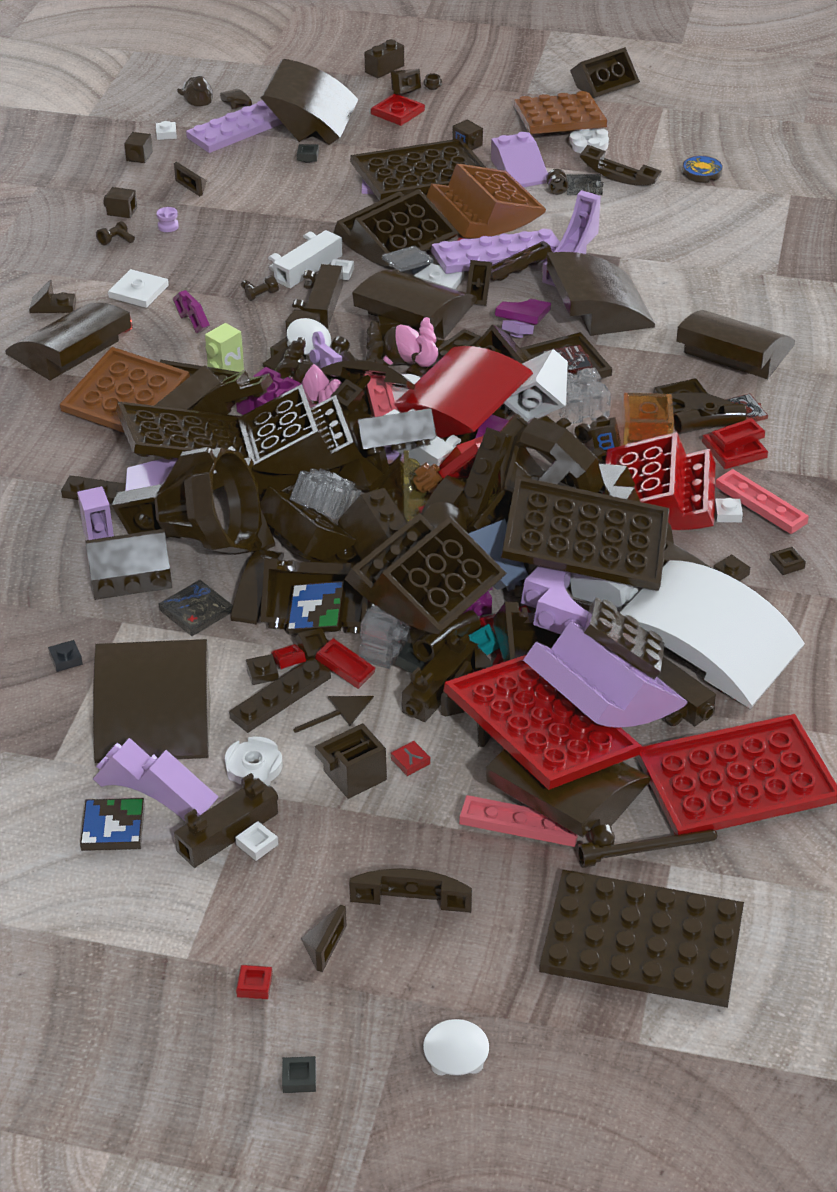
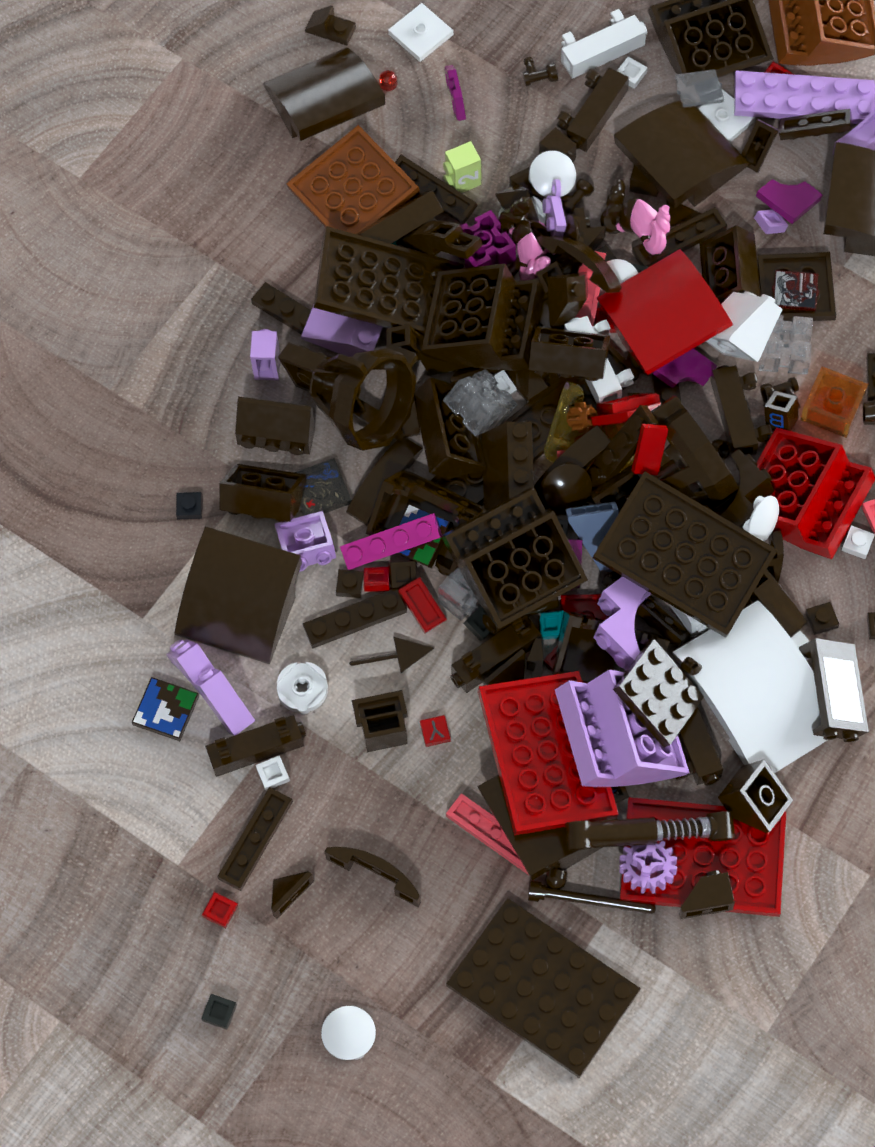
camera: 25 degrees right, 25 degrees up
(140, 621) = (262, 492): none -> dark brown slope
(220, 640) = (308, 538): none -> lavender plate
(264, 904) = (255, 839): none -> dark brown plate
(290, 617) = (391, 541): none -> dark pink plate
(369, 393) = (566, 296): none -> dark brown slope
(511, 458) = (649, 449): none -> red tile
(622, 768) = (646, 831): none -> dark brown piece
(640, 486) = (763, 517): none -> white dish
(641, 615) = (691, 666): none -> dark brown rock
(692, 787) = (635, 868): none -> lavender gear
(759, 705) = (756, 796): none -> dark brown slope
(769, 795) = (709, 896): none -> dark brown slope
(803, 624) = (837, 689): none -> panel

